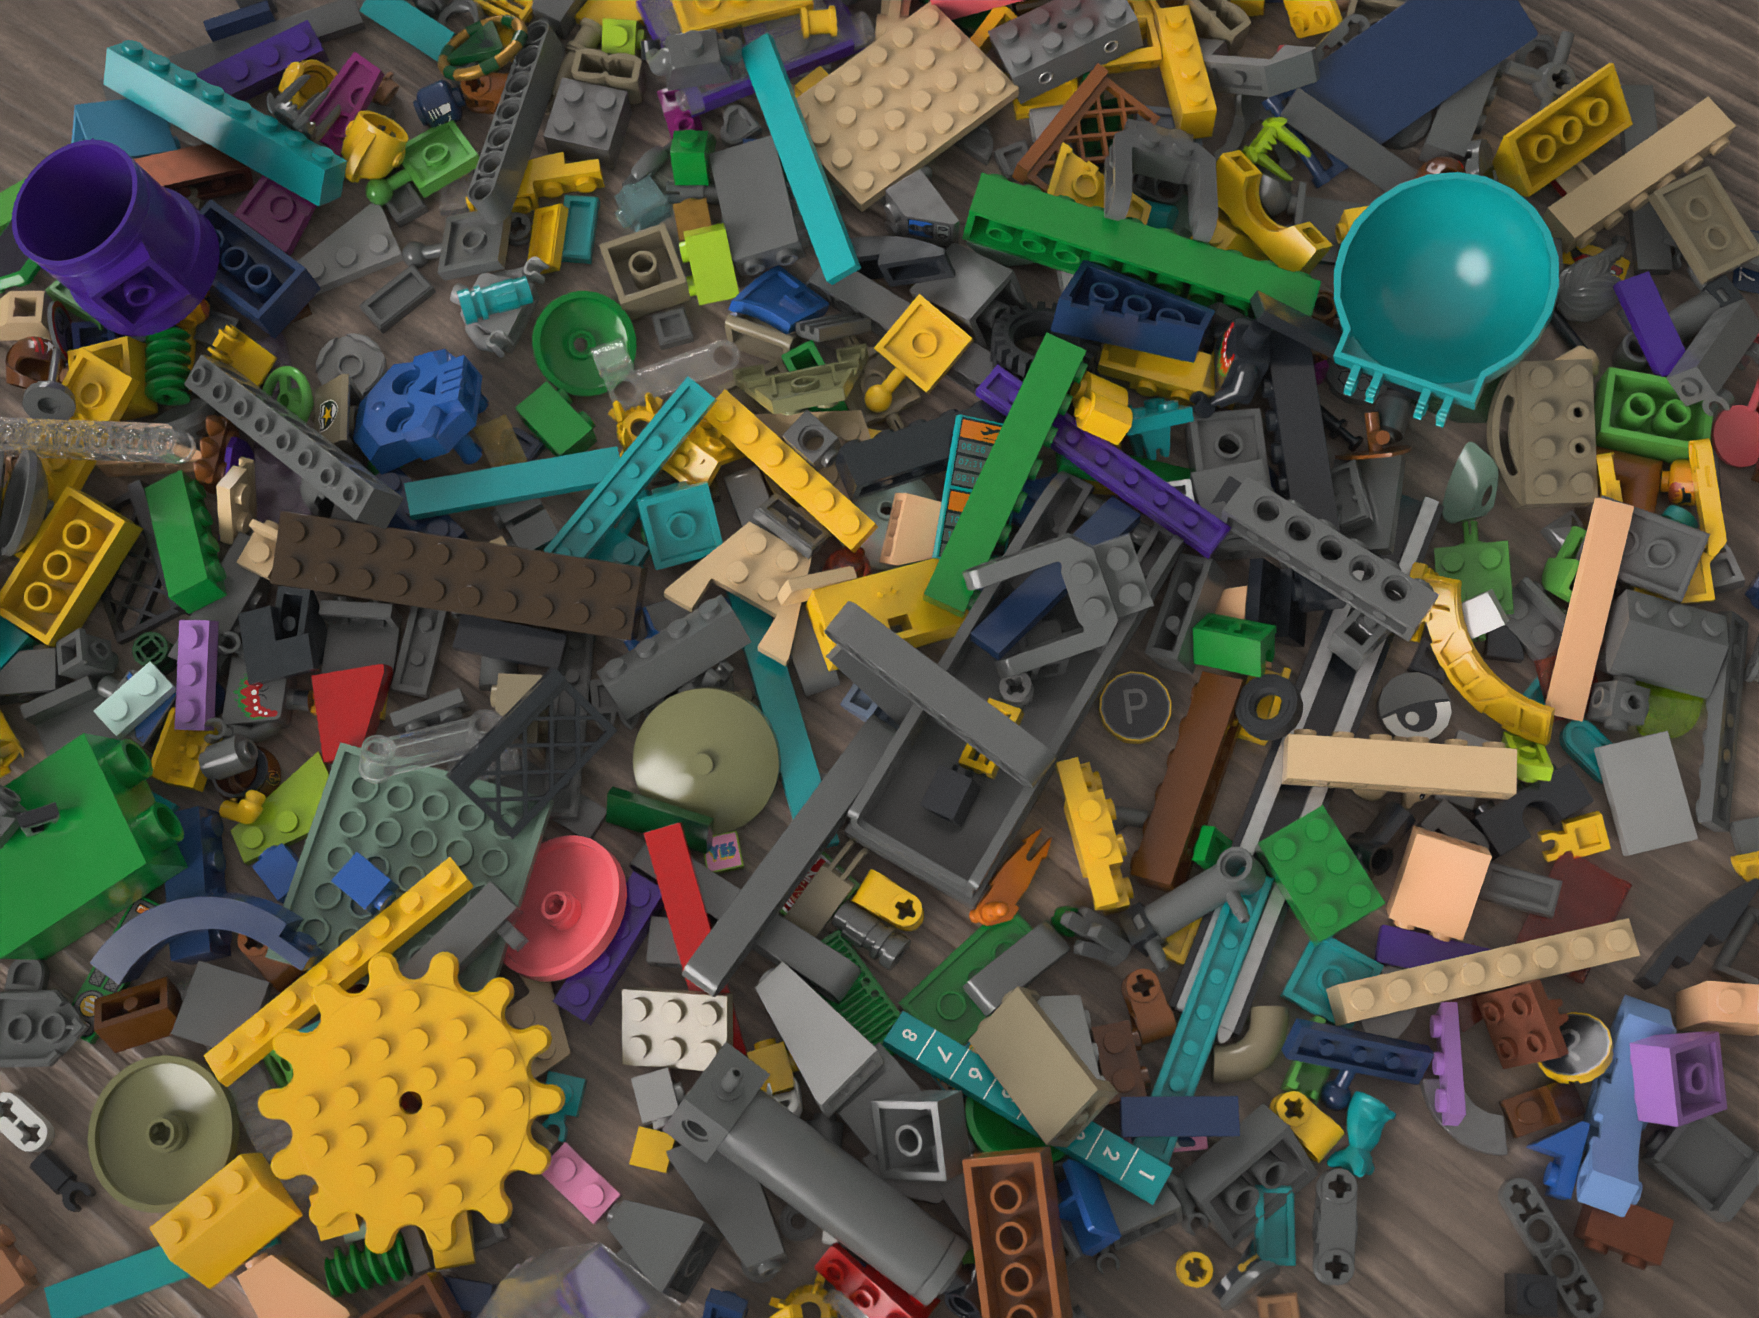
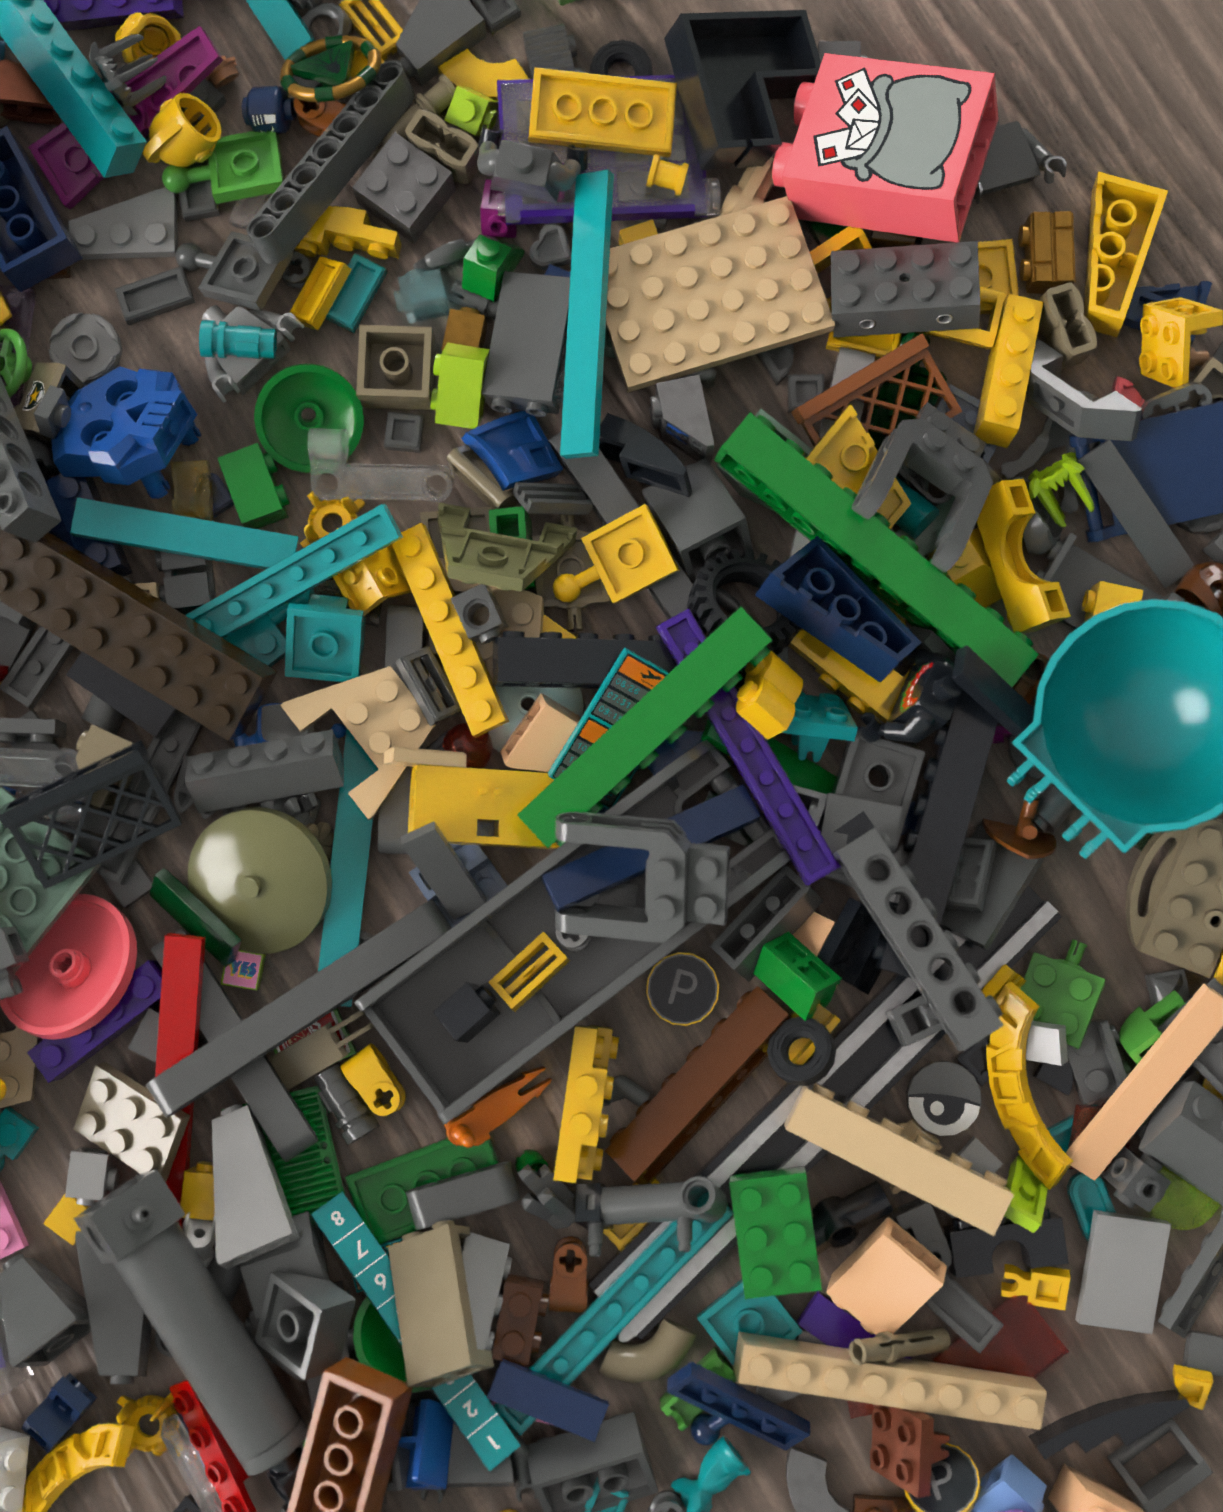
camera: 20 degrees right, 10 degrees up
(354, 416) = (52, 412): none -> dark grey plate
(940, 694) = (484, 928): dark grey beam -> none
(1210, 846) = (690, 1159): green plate -> none
(1311, 1126) = (665, 1447): yellow piece -> none
(1337, 428) = (996, 793): black piece -> none
(1448, 1064) = (818, 1451): medium lavender plate -> none
(1467, 485) = (1093, 904): sand green piece -> none
(1470, 938) = (889, 1347): none -> dark tan pin

